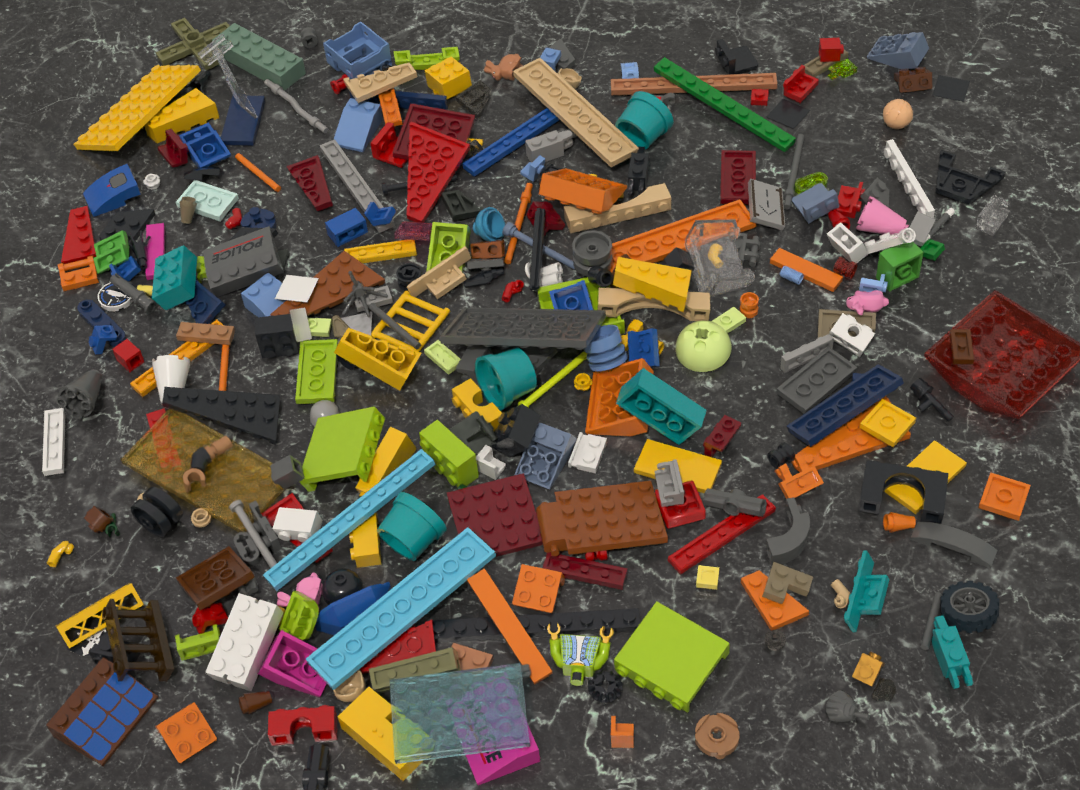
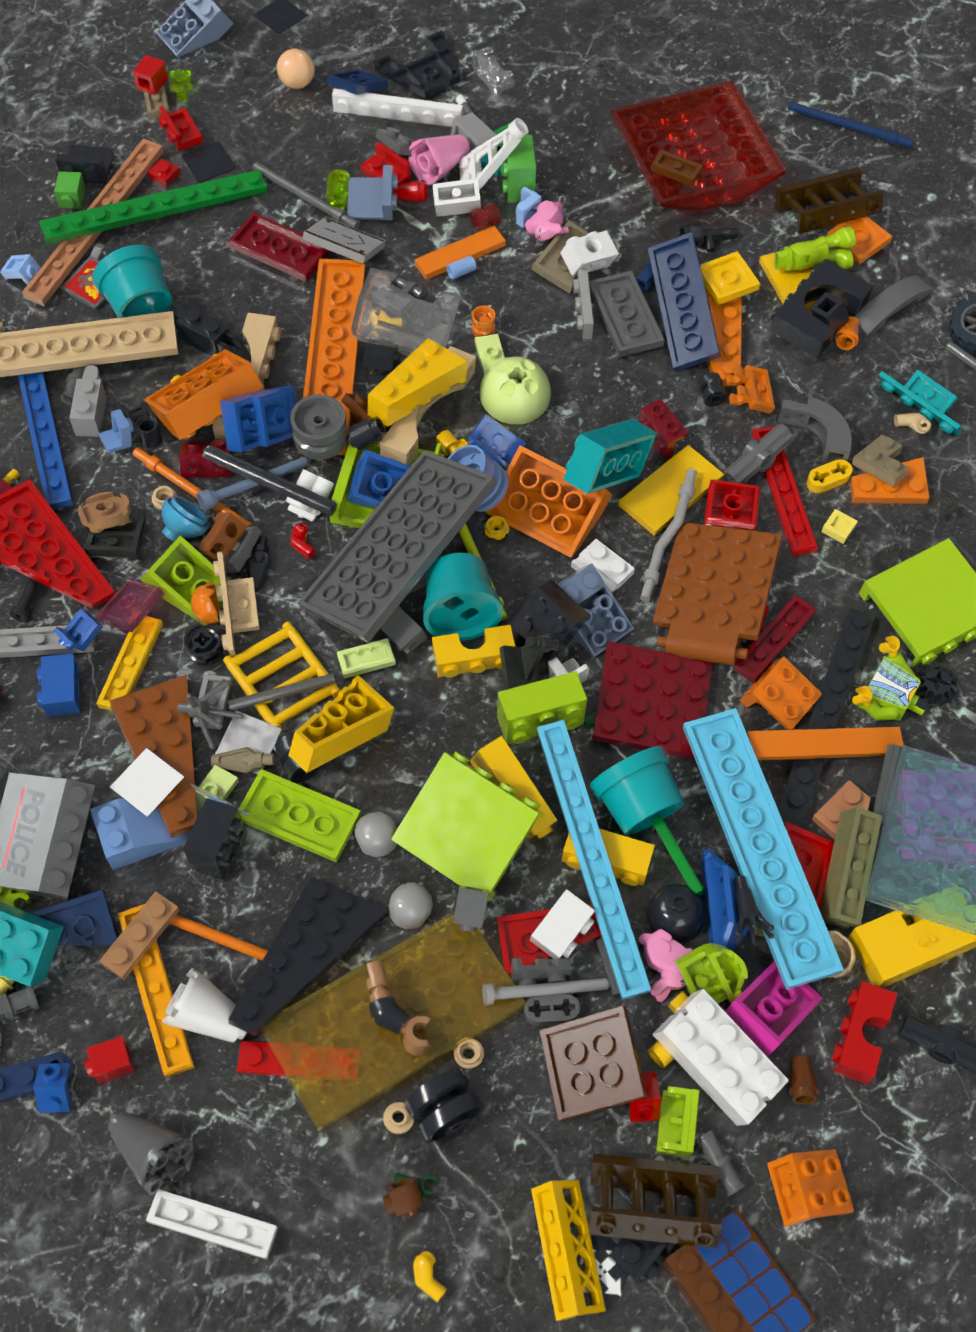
camera: 70 degrees left, 10 degrees up
(181, 674) = (717, 1157): none -> dark grey pin
(283, 447) = (410, 905): none -> light grey hair
(344, 613) = (748, 912): none -> black piece
(383, 568) = (677, 856): none -> green tile
(431, 259) = (205, 604): none -> orange hair
(473, 190) = (104, 511): none -> medium nougat plate
(505, 211) = (161, 493): none -> tan plate
(579, 217) = (258, 418): none -> blue slope
(596, 481) = (652, 575): none -> light grey bar
(669, 483) = (714, 498): light grey hinge -> none
(707, 61) = (70, 190): none -> bright green brick
(750, 559) = (831, 479): none -> yellow beam
(898, 497) = (831, 311): none -> black brick
(912, 149) = (357, 81): none -> dark blue tile
(913, 80) = (247, 34): reddish brown bracket -> none
(951, 463) = (814, 252): none -> lime piece
(1030, 450) = (823, 188): none -> dark brown fence

